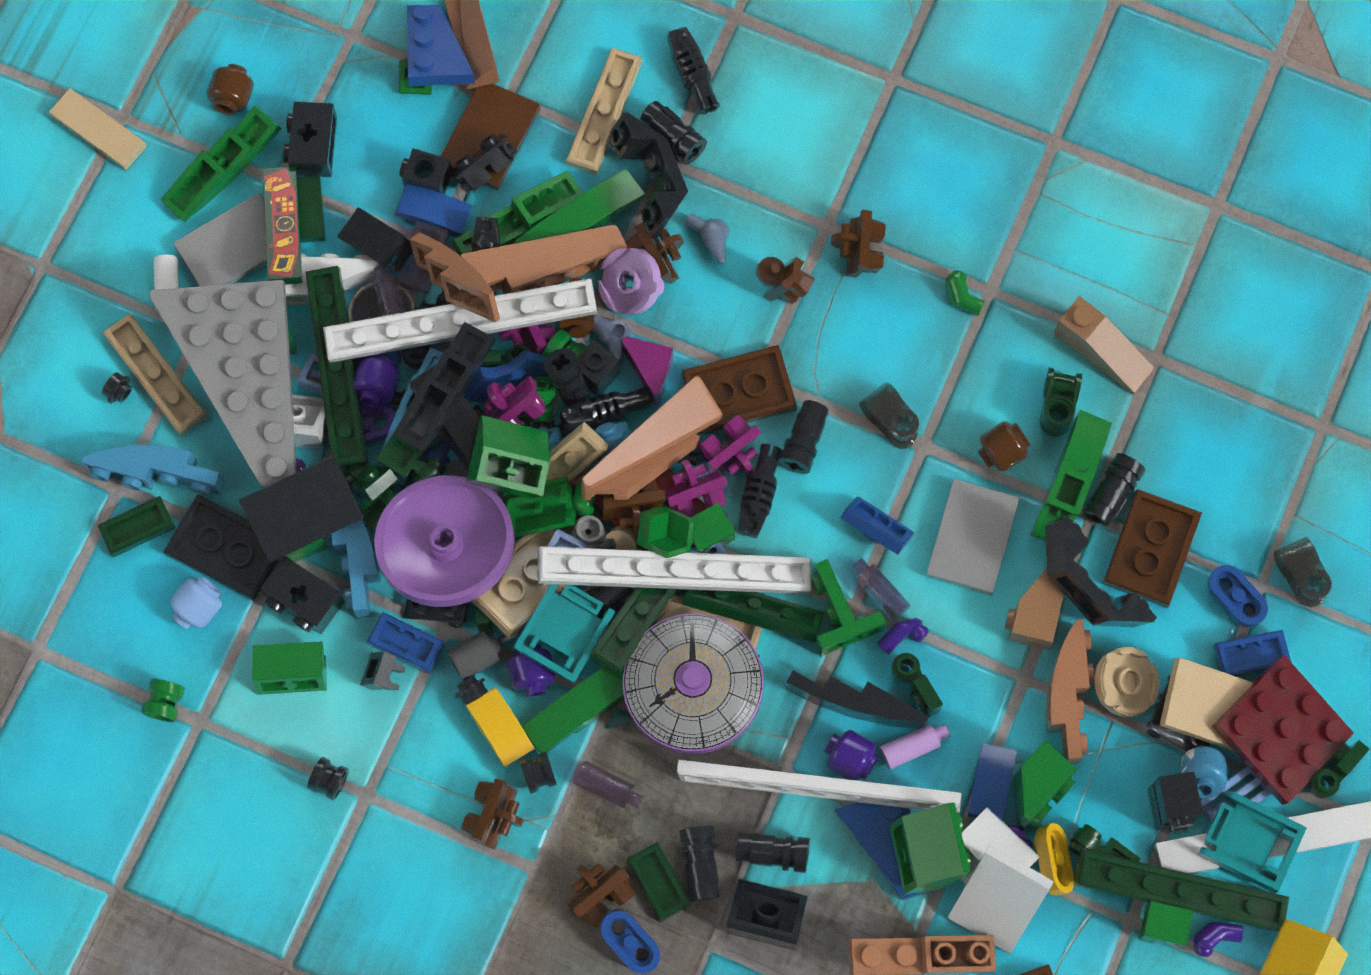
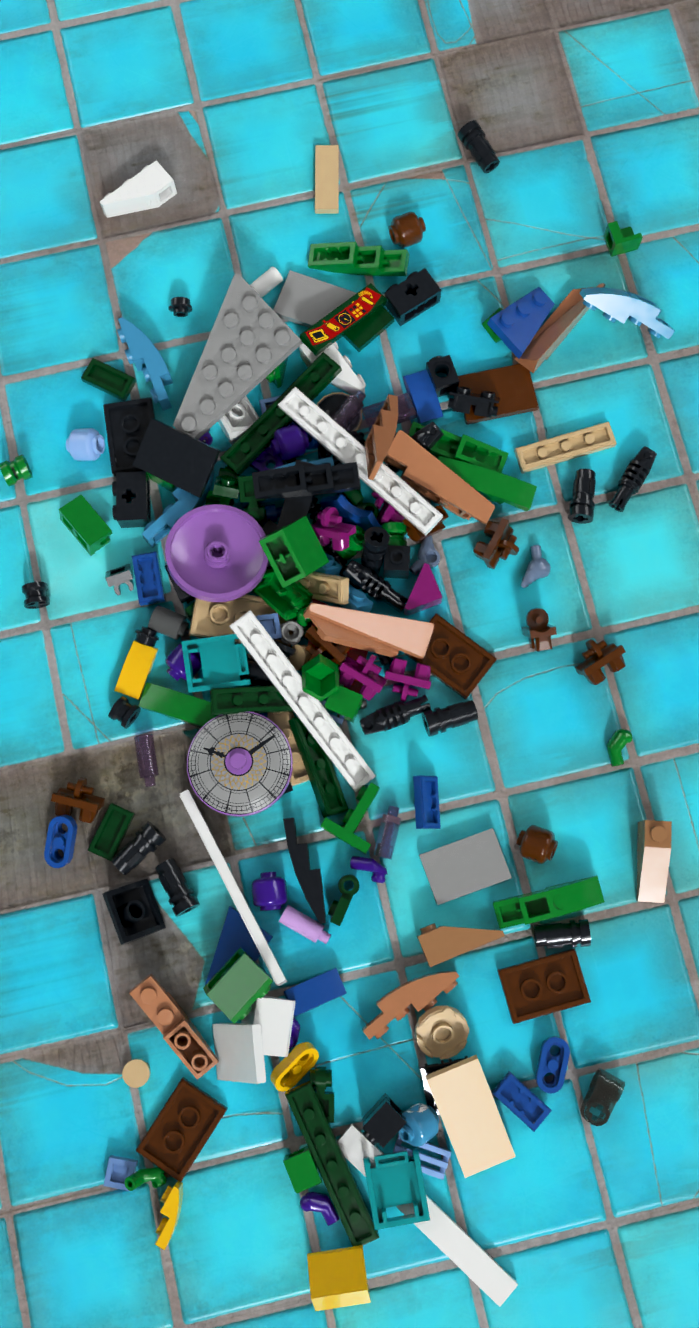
camera: 55 degrees right, 5 degrees up
(155, 374) = (207, 310): tan tile -> none
(376, 240) = (376, 377): black hinge -> none
(497, 813) = (82, 706): reddish brown hips -> none
(639, 141) = (559, 480): black slope -> none
(646, 281) = (472, 551): lavender plate -> none
(887, 411) = (505, 756): clear smoke piece -> none
(1038, 781) = (331, 1024): green slope -> none
(1060, 396) = (599, 856): dark green piece -> none
(1063, 544) = (494, 931): black slope -> none
(1283, 729) = (484, 1158): dark red plate -> none
(1345, 759) = (495, 1214): dark green plate -> none

